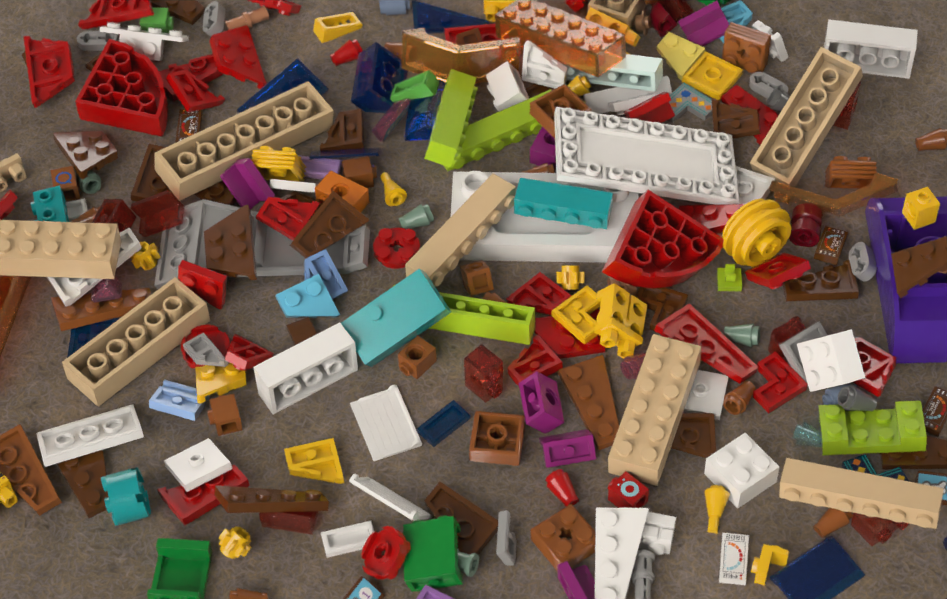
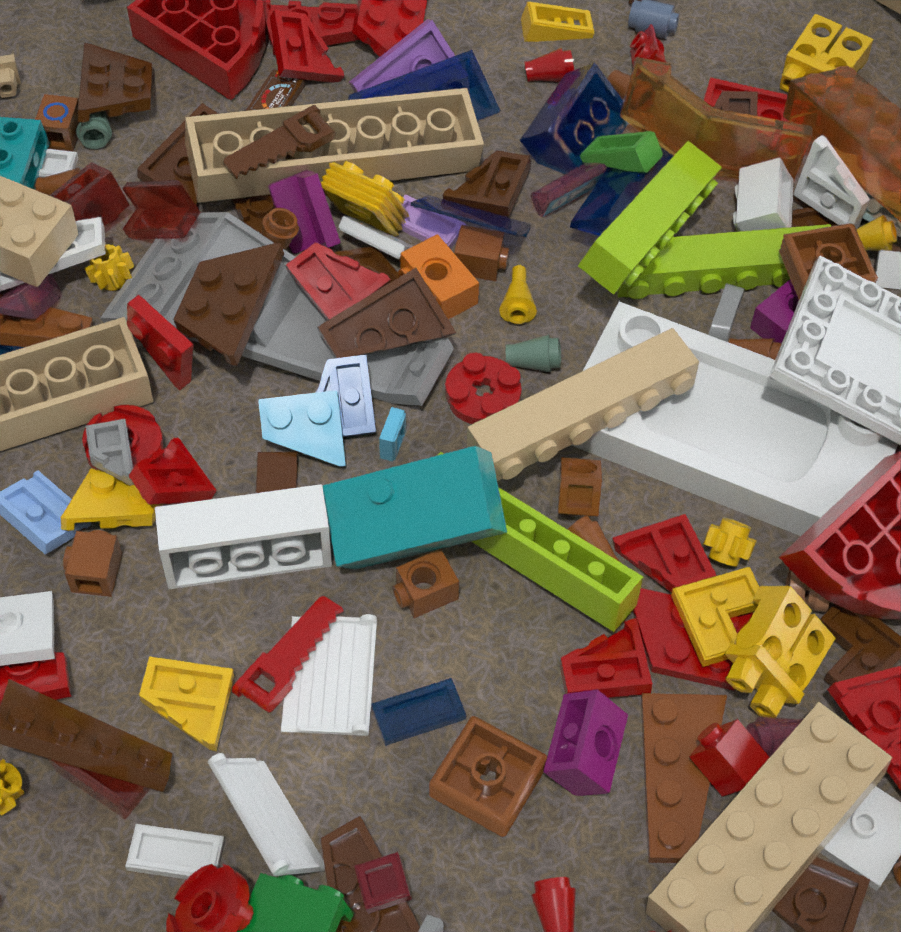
camera: 20 degrees right, 5 degrees up
(219, 147) = (282, 142): none -> reddish brown piece
(237, 196) = (280, 226): none -> dark orange cone
(263, 71) = (415, 51): none -> medium lavender wing
(358, 288) = (392, 434): none -> medium azure tile
(358, 422) = (287, 656): none -> red piece
(397, 23) = (647, 46): none -> red hinge
(435, 19) = (699, 58): clear blue wing -> none
(468, 506) = (383, 882): none -> dark red tile
(484, 373) = (515, 655): clear red brick -> none
(513, 157) = (726, 312): none -> light grey beam
(563, 203) = (766, 418): teal brick -> none
(568, 448) = (597, 838): magenta panel -> none
(617, 381) = (728, 756): none -> red brick

